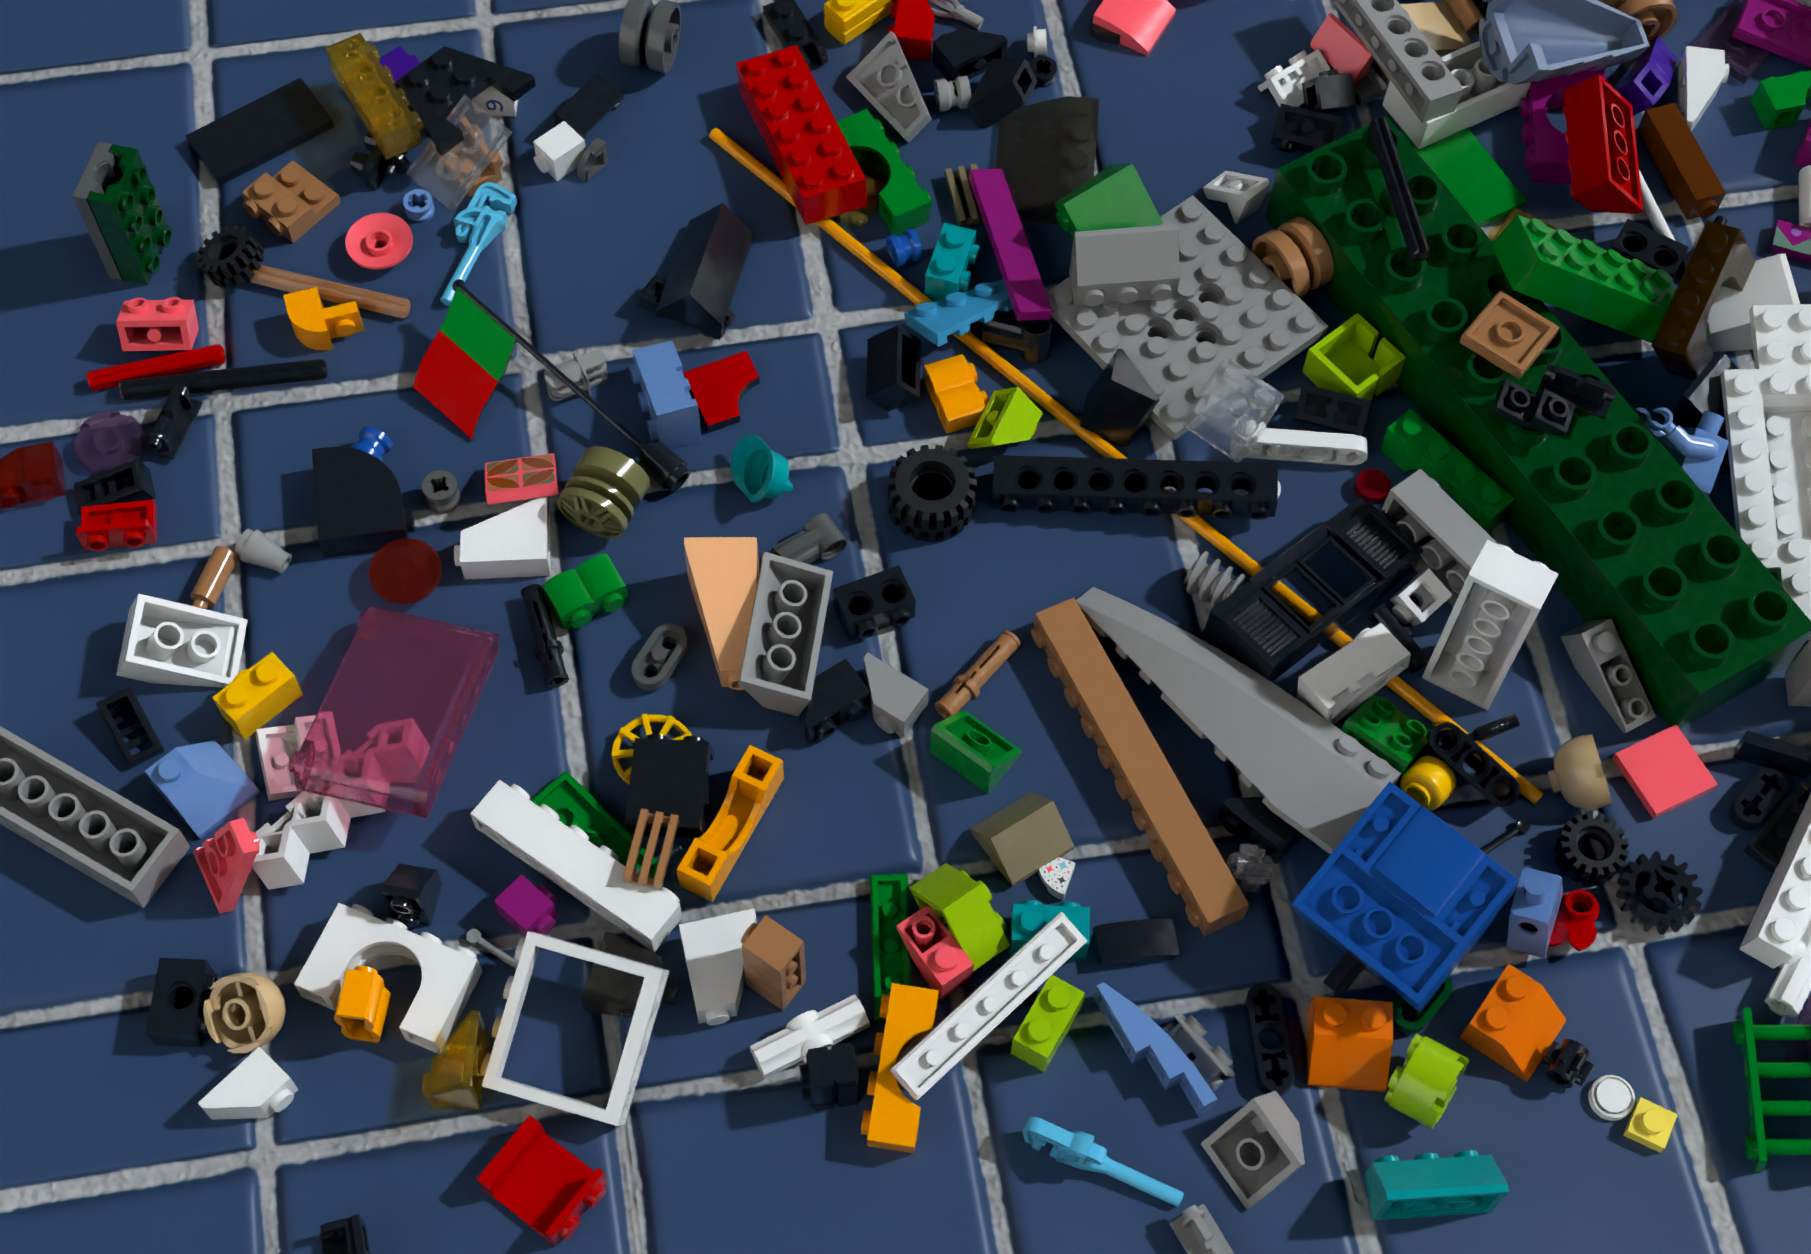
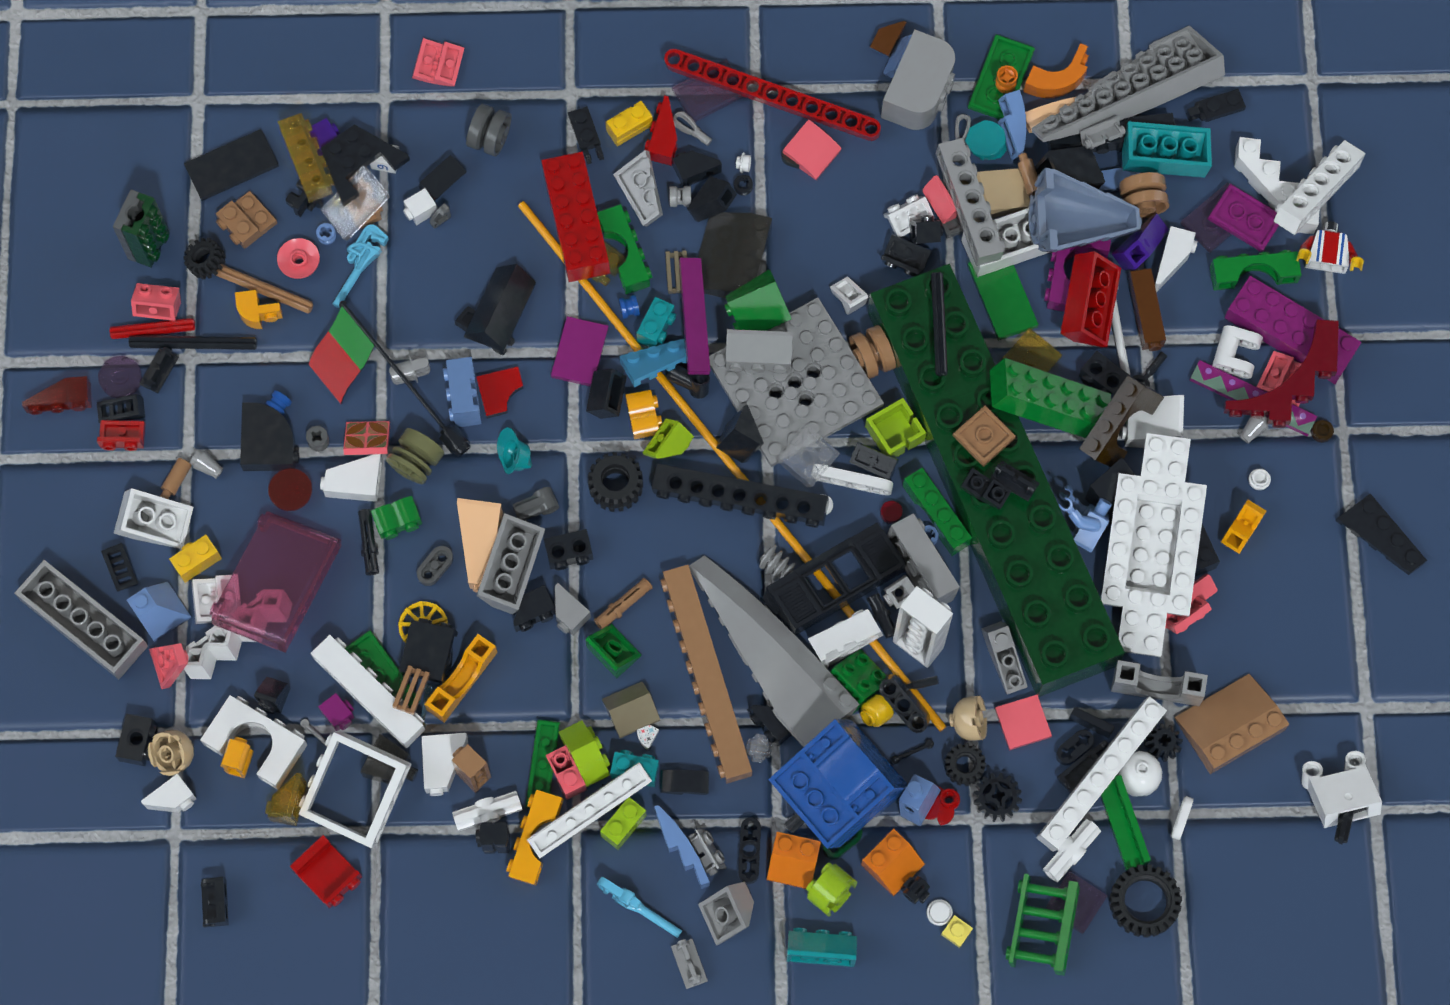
camera: 10 degrees right, 10 degrees up
(838, 320) = (579, 351): none -> magenta tile

